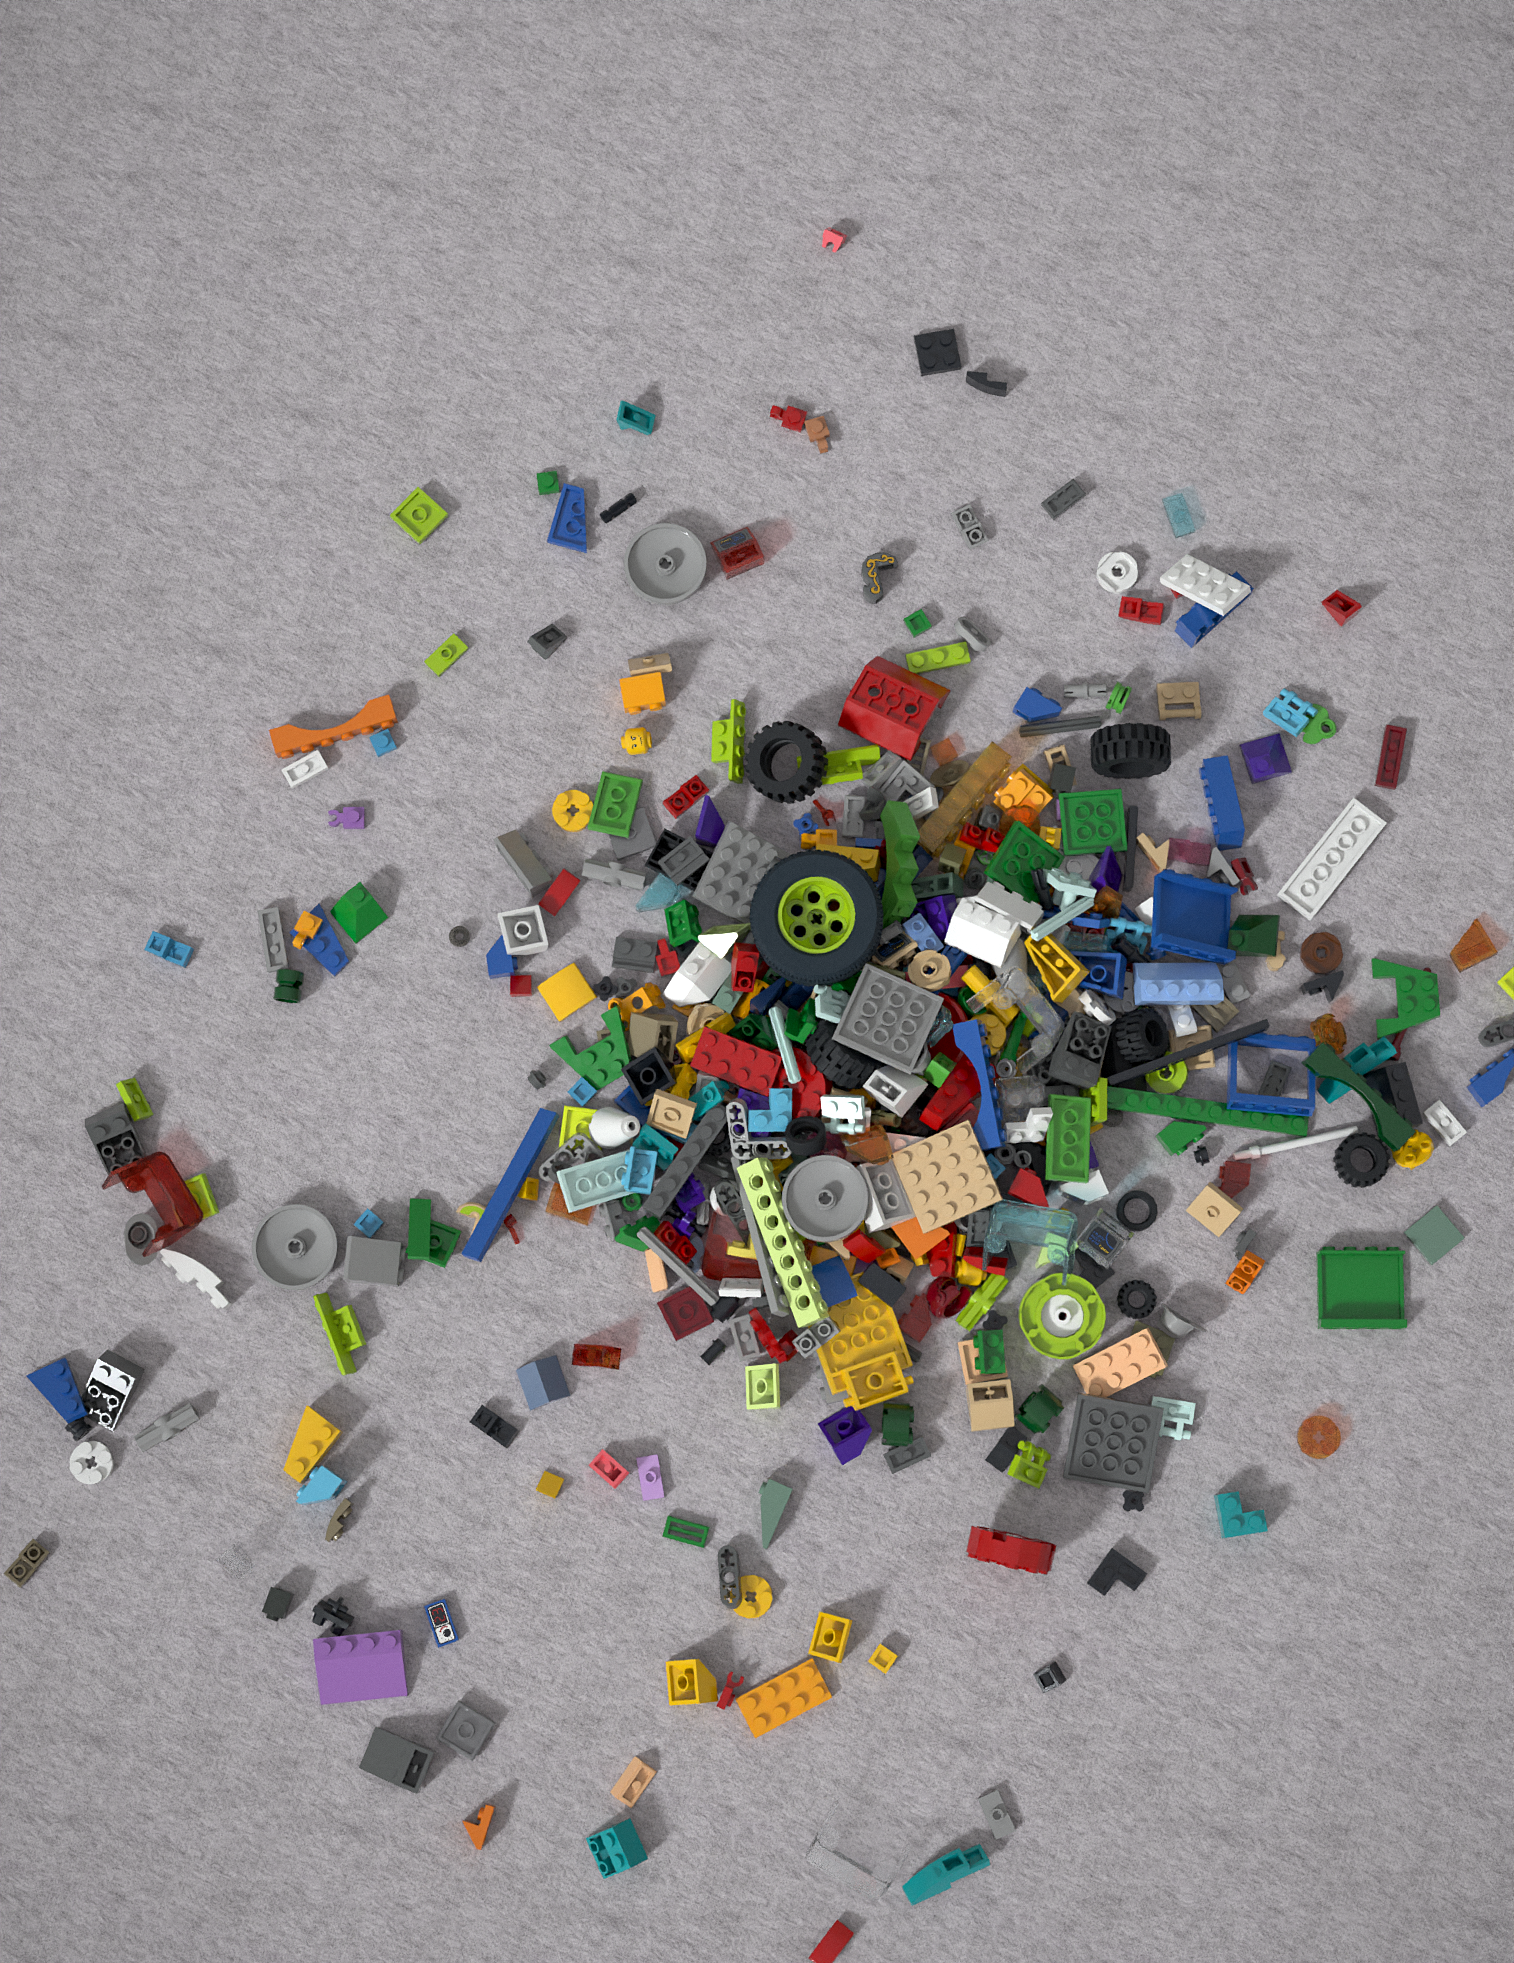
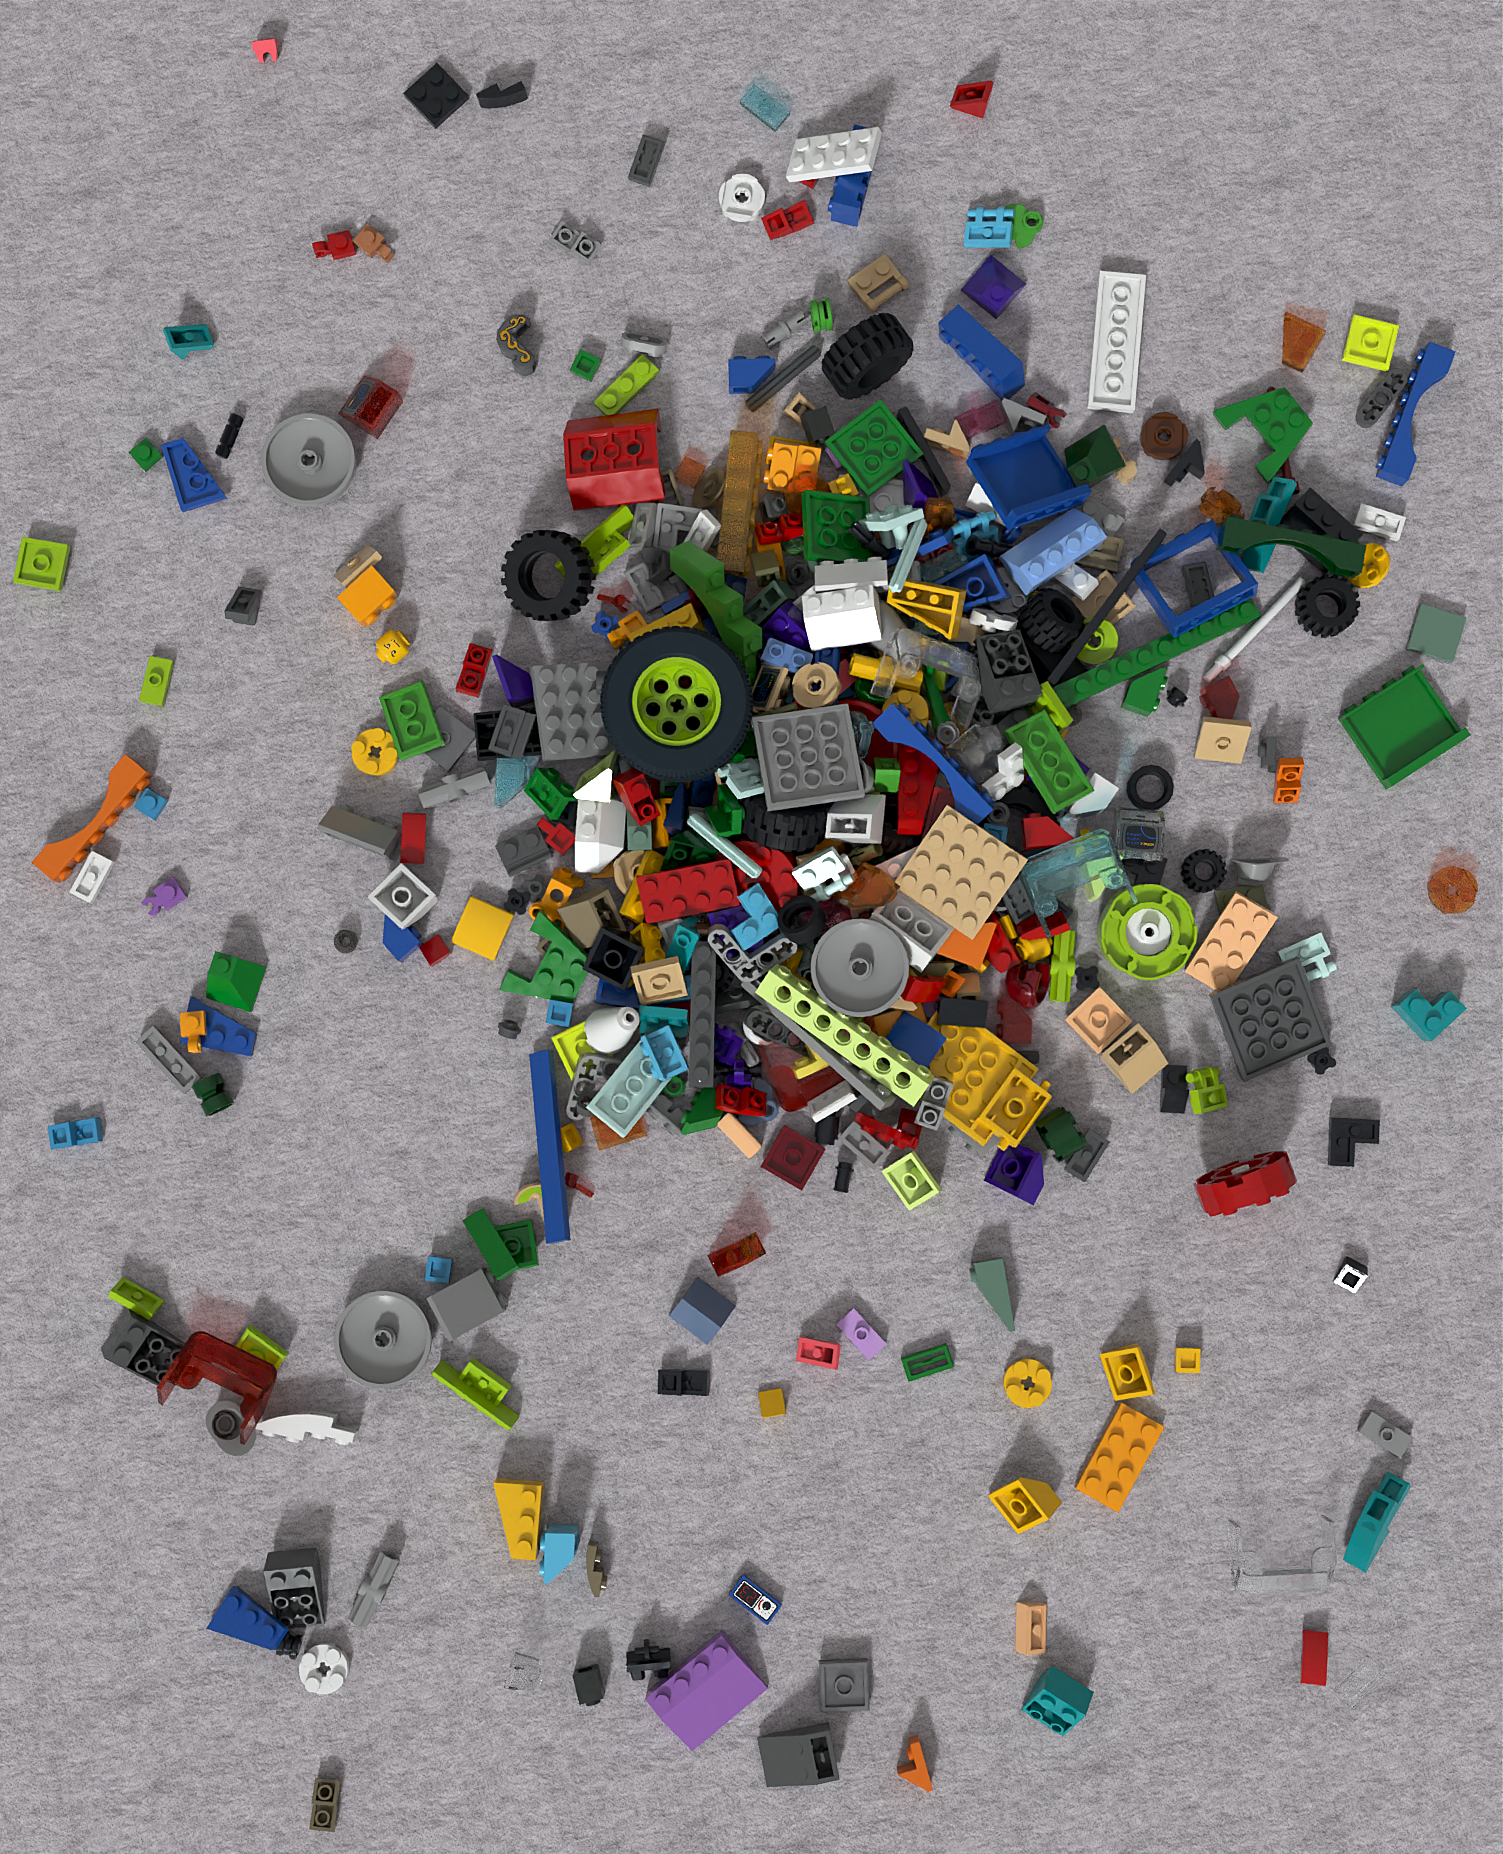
camera: 30 degrees left, 5 degrees up
(678, 1266) = (758, 1120): light grey axle -> none
(723, 1570) = (1013, 1389): dark grey beam -> none
(727, 1697) = (1066, 1491): red plate -> none
(729, 741) = (480, 591): lime bracket -> none
(890, 932) = (754, 672): light grey pin -> none
(990, 1352) = (1102, 1009): green bracket -> none
(1027, 1158) = (1022, 805): dark grey hinge -> none
(1039, 1409) = (1183, 1033): dark green brick -> none
(1390, 757) = (1109, 211): dark red plate -> none

